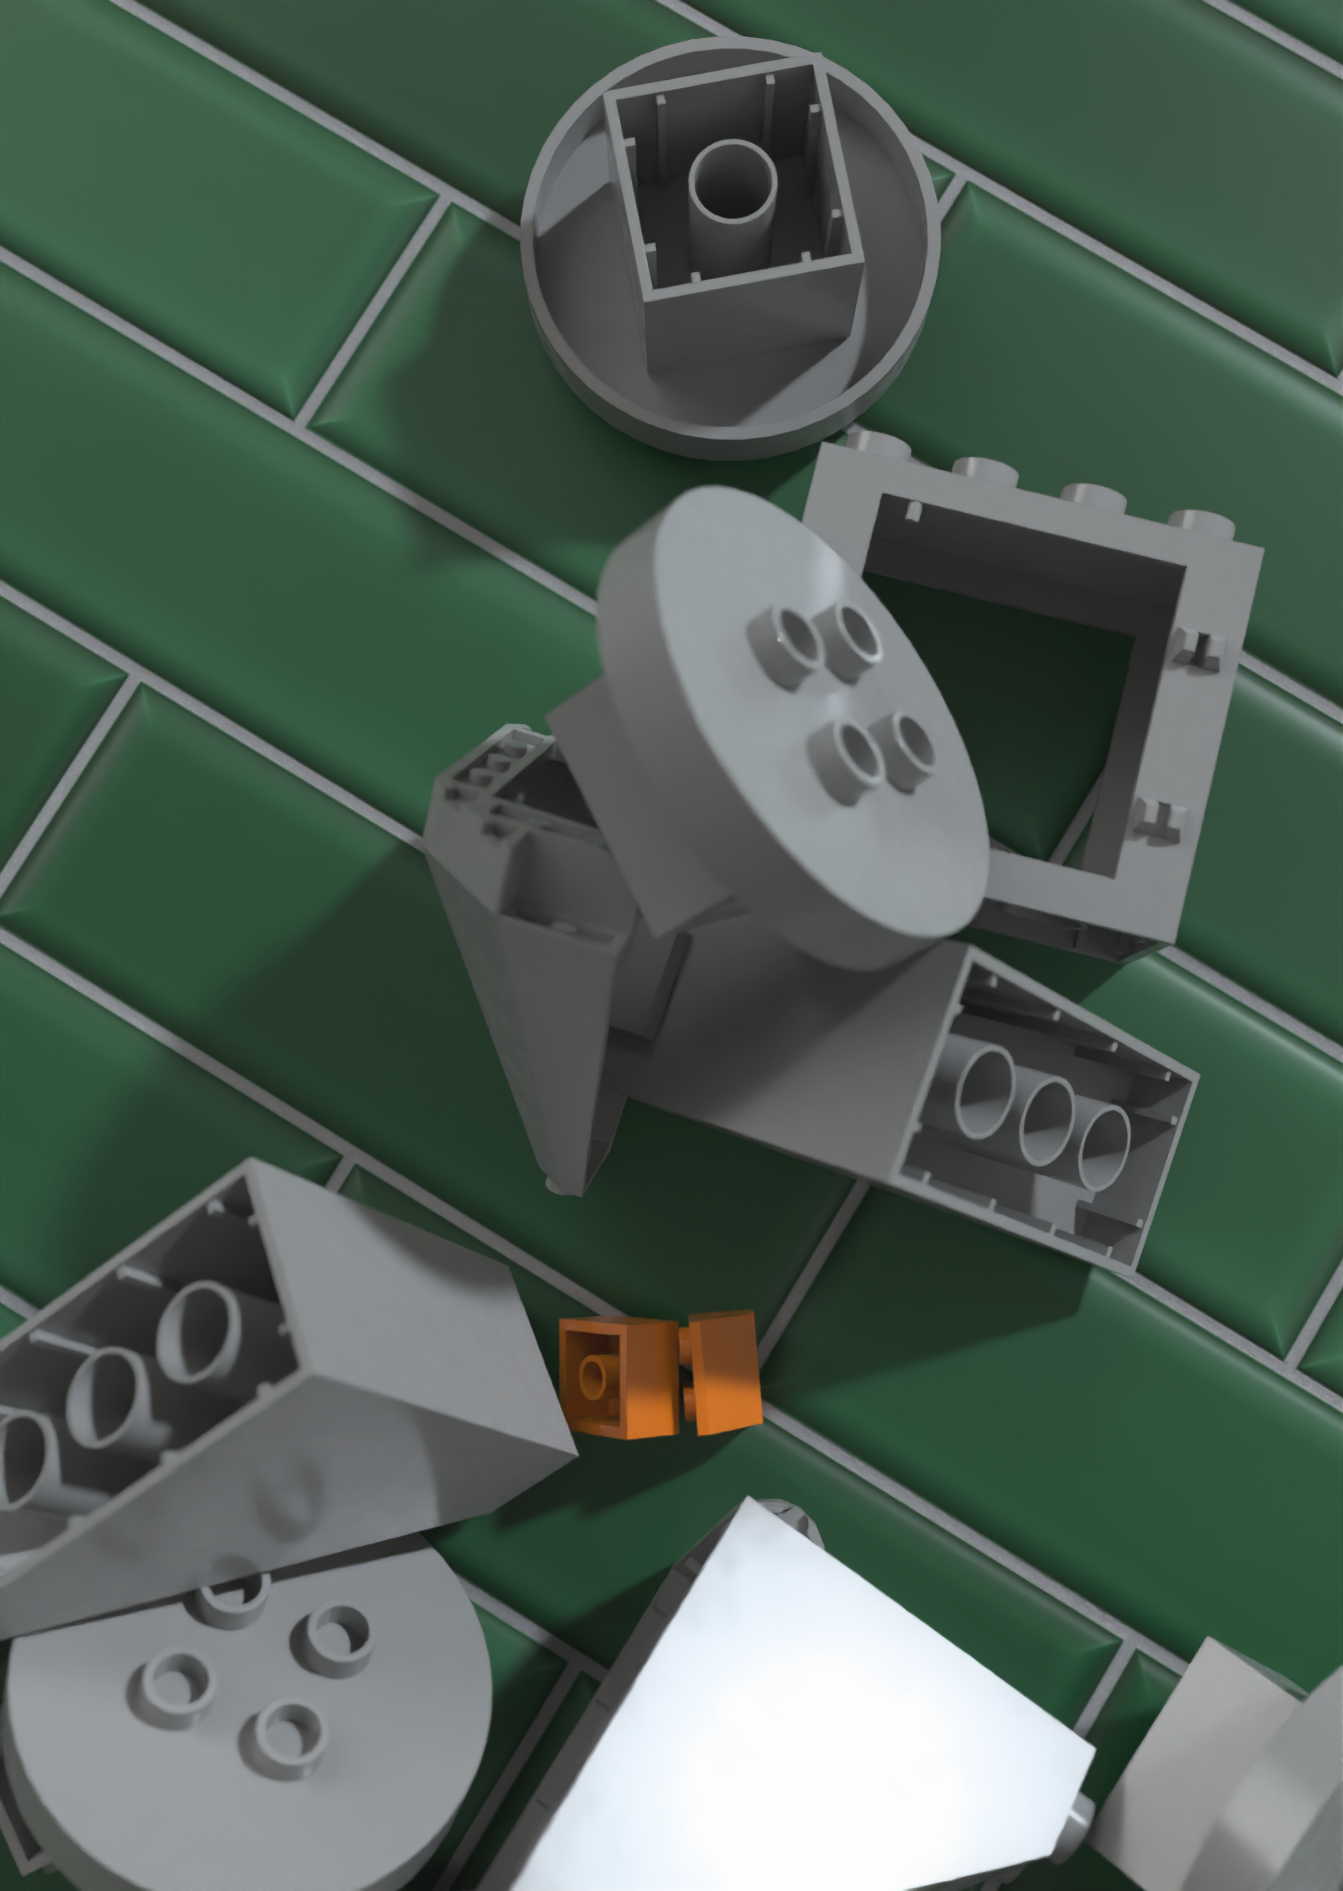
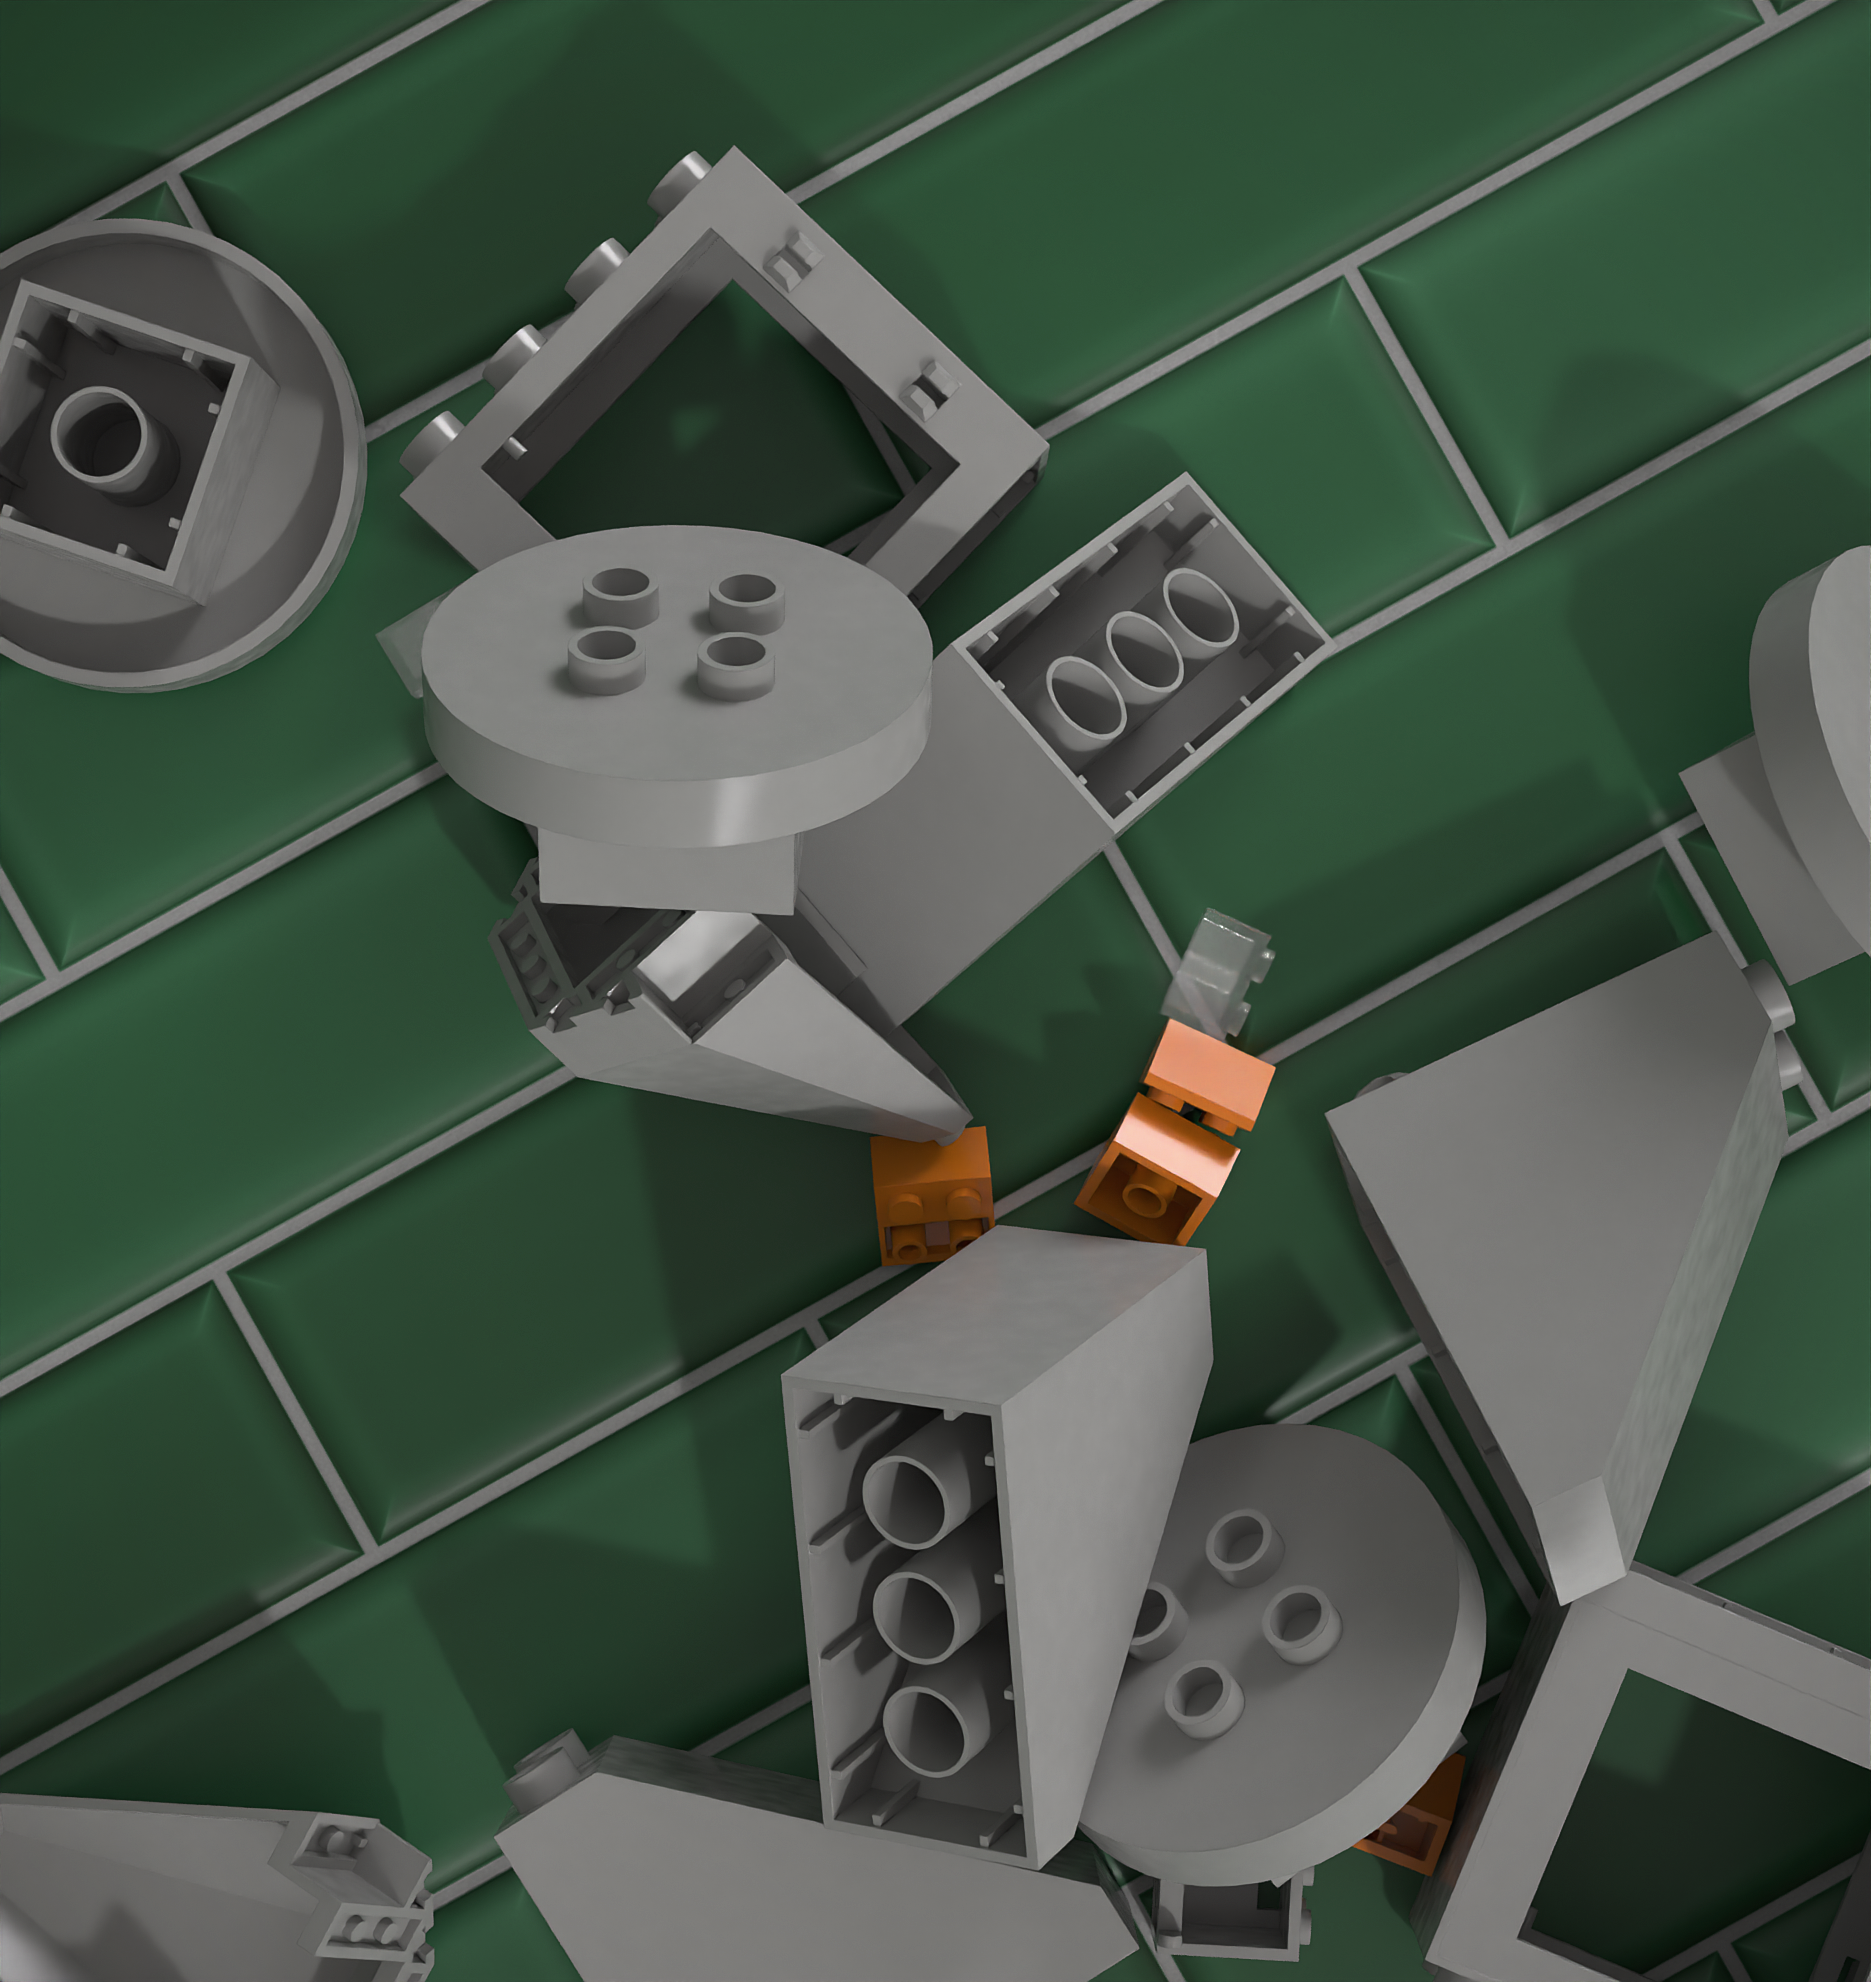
camera: 65 degrees left, 5 degrees up
(500, 1199) = (931, 1196): none -> orange slope
(810, 1330) = (1216, 975): none -> clear brick

